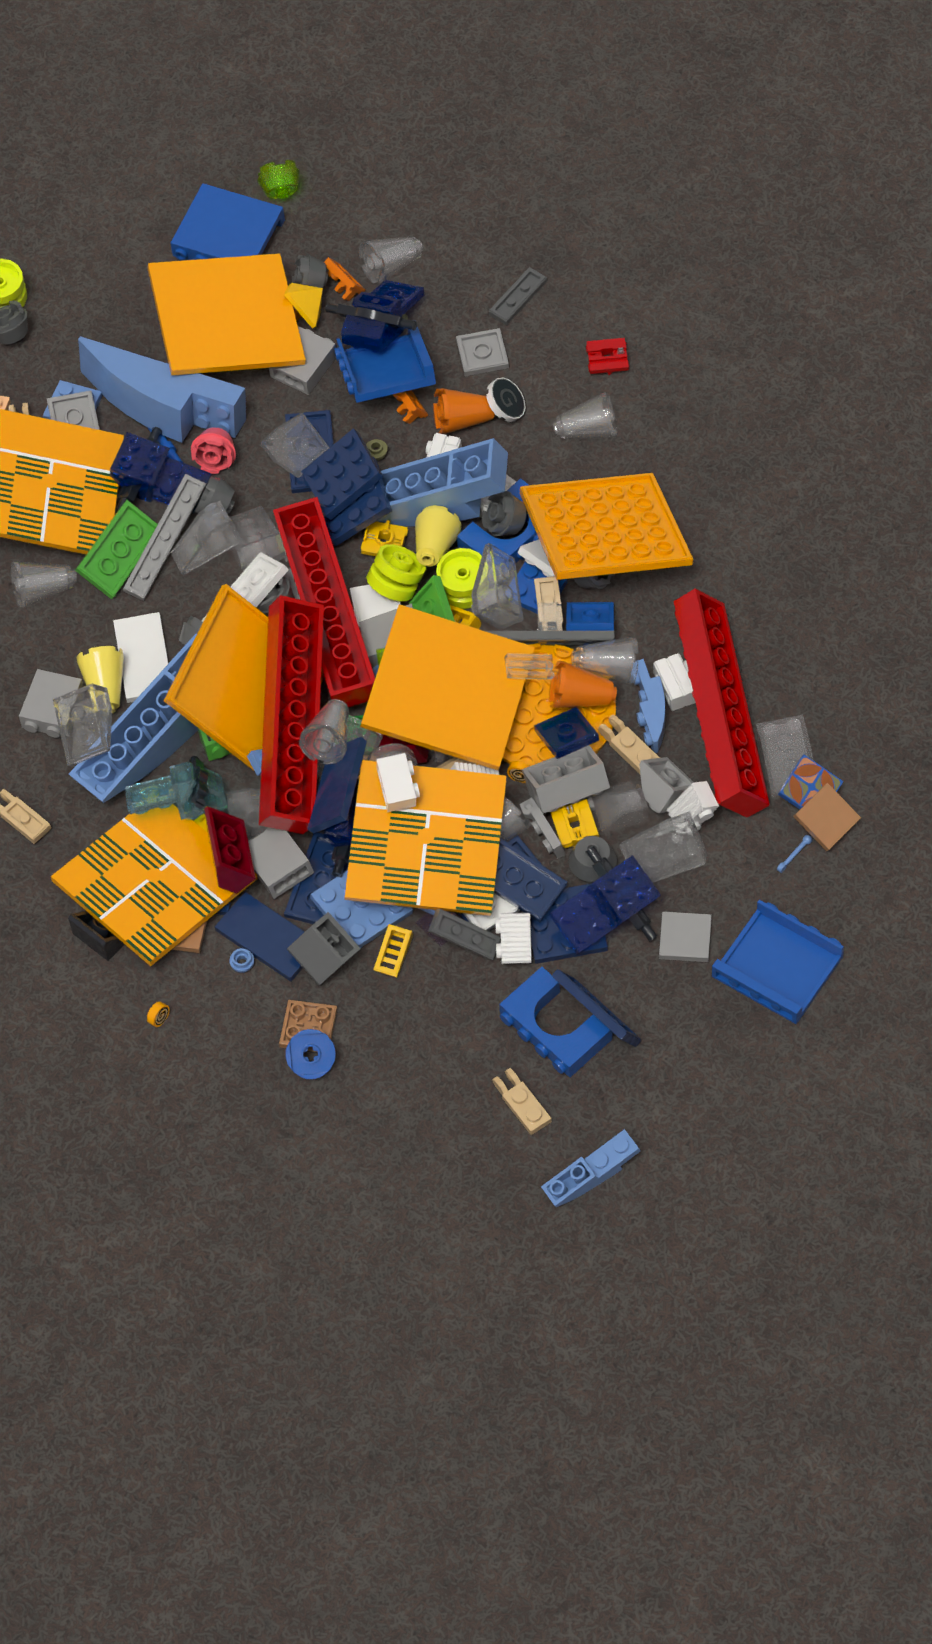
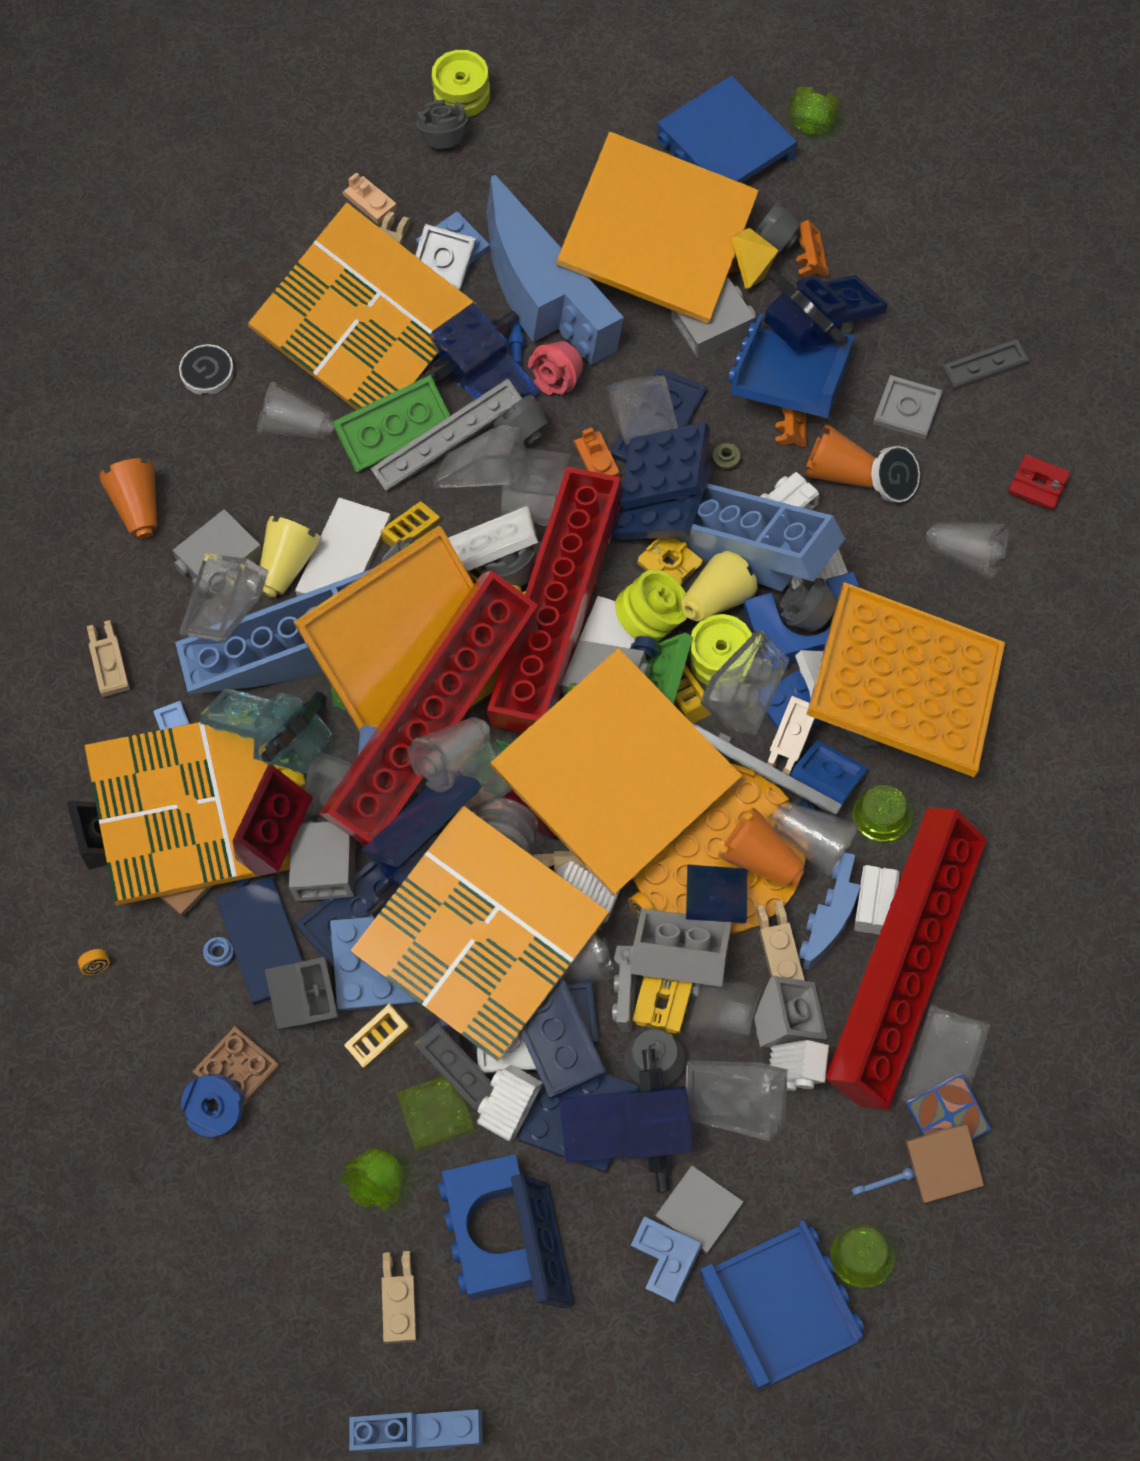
camera: 30 degrees right, 5 degrees up
(94, 829) = (171, 716): none -> light blue tile
(174, 628) = (389, 532): none -> yellow slope
(278, 494) = (595, 453): none -> orange plate
(388, 256) = (874, 251): clear cone -> none
(396, 782) = (479, 855): white brick -> none
(407, 599) = (646, 644): none -> dark blue plate
(456, 1036) = (373, 1178): none -> clear neon green cone
(465, 976) = (434, 1113): none -> clear neon green tile
(525, 662) = (742, 806): clear tile -> none
(549, 616) = (780, 750): clear panel -> none
(644, 623) = (882, 813): none -> clear neon green cone
(688, 970) = (674, 1254): none -> medium blue plate
(810, 902) = (862, 1255): none -> clear neon green cone

